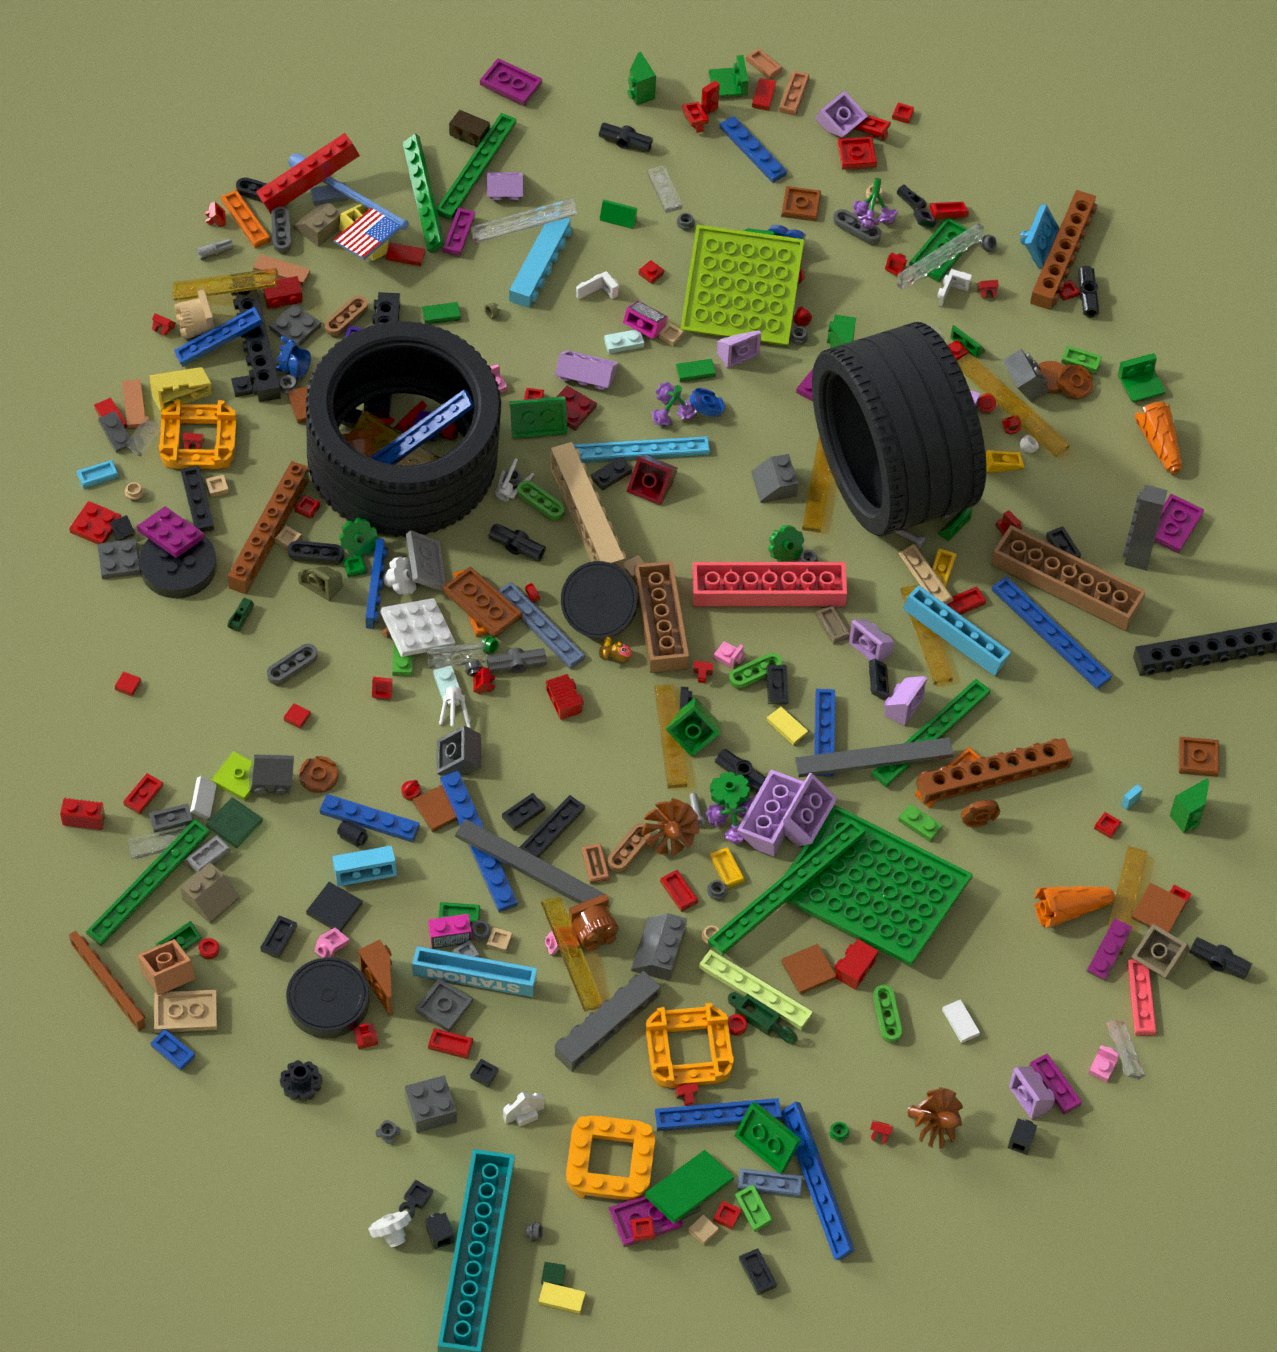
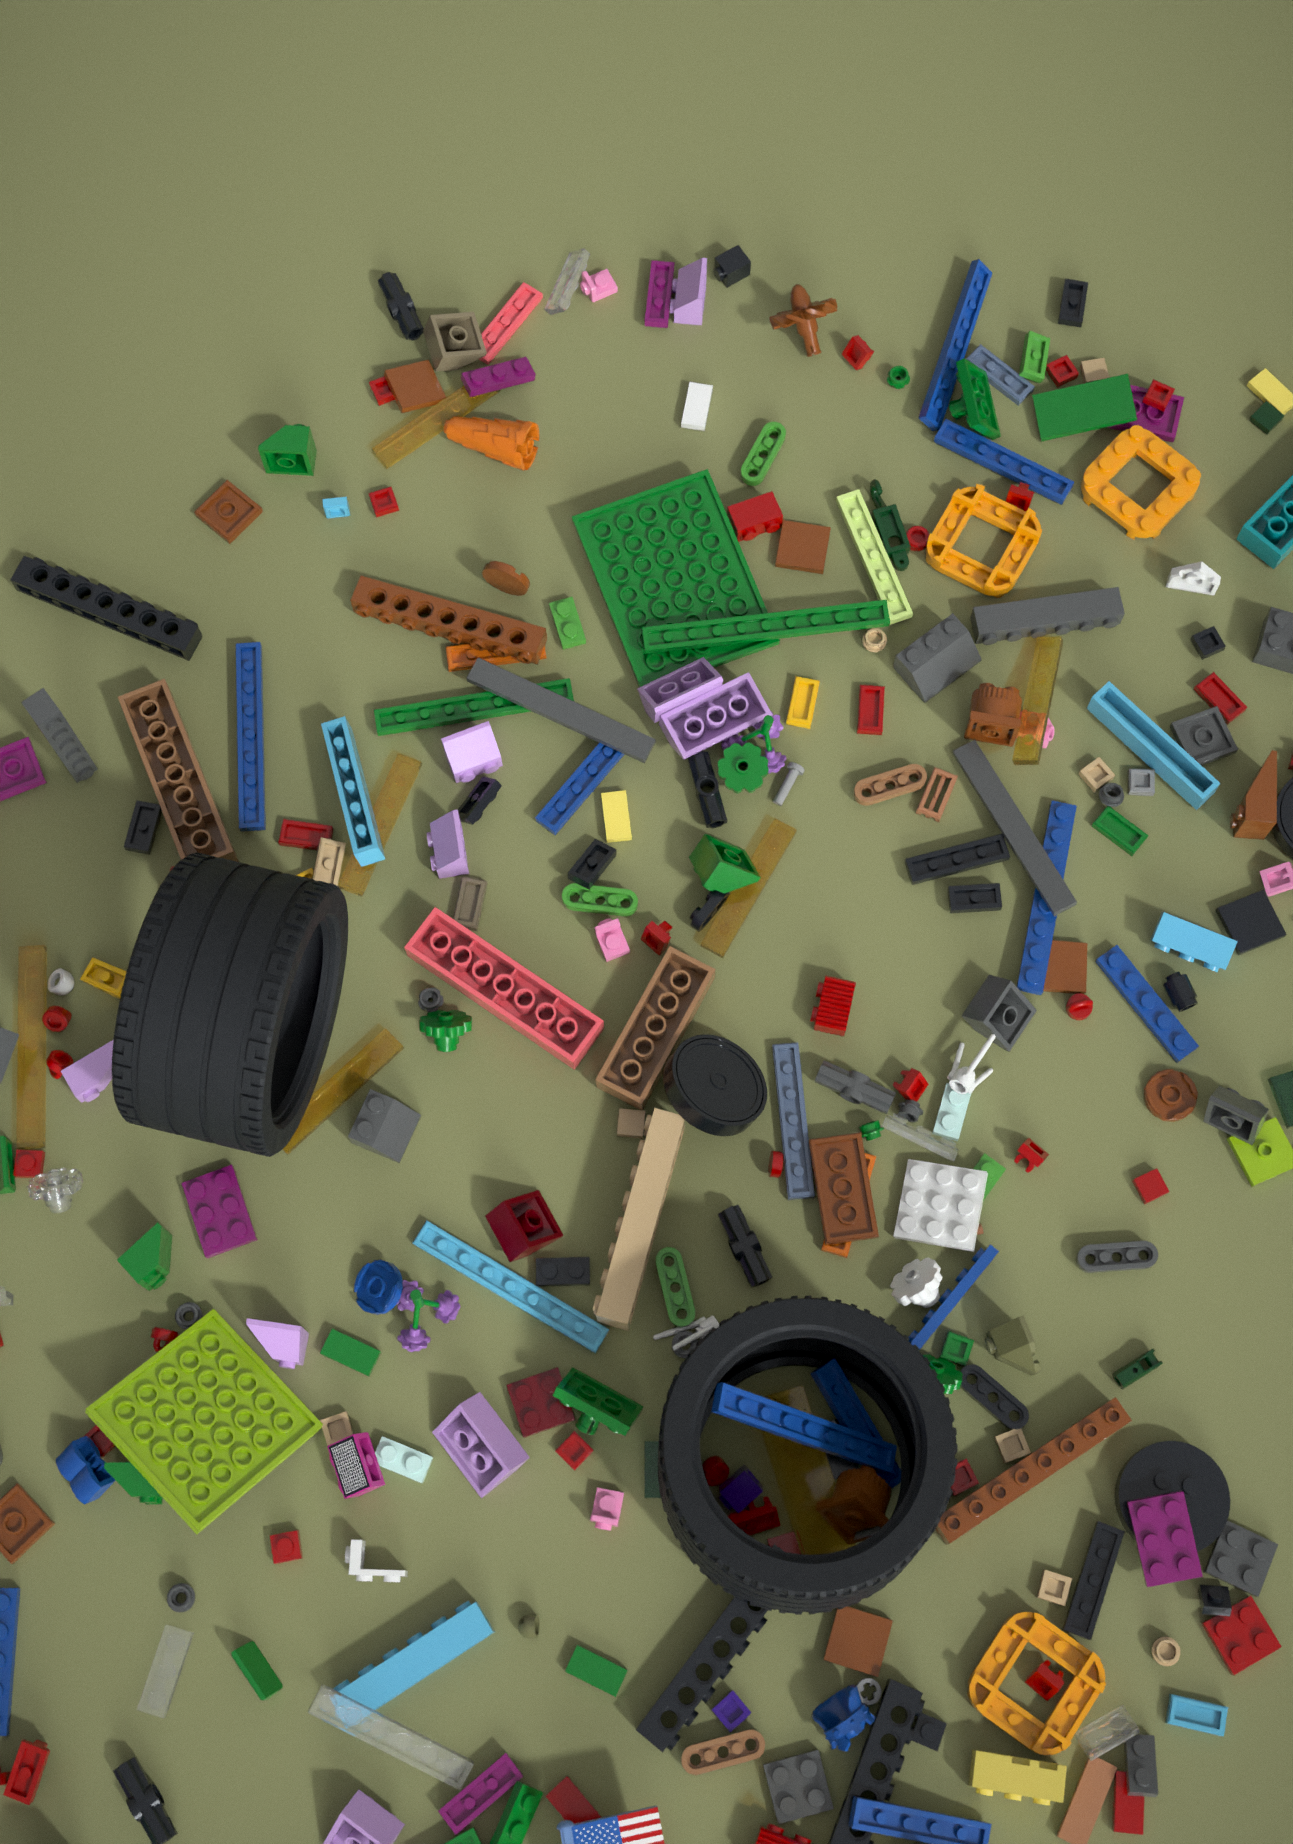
camera: 140 degrees left, 15 degrees up
(426, 560) = (877, 1279): light grey plate -> none
(449, 931) = (1148, 809): dark pink brick -> none
(534, 1231) = (1260, 463): dark grey plate -> none
(616, 650) = (734, 1022): pearl gold animal -> none
(676, 822) = (836, 764): dark orange piece -> none
(717, 884) = (832, 677): dark grey plate -> none

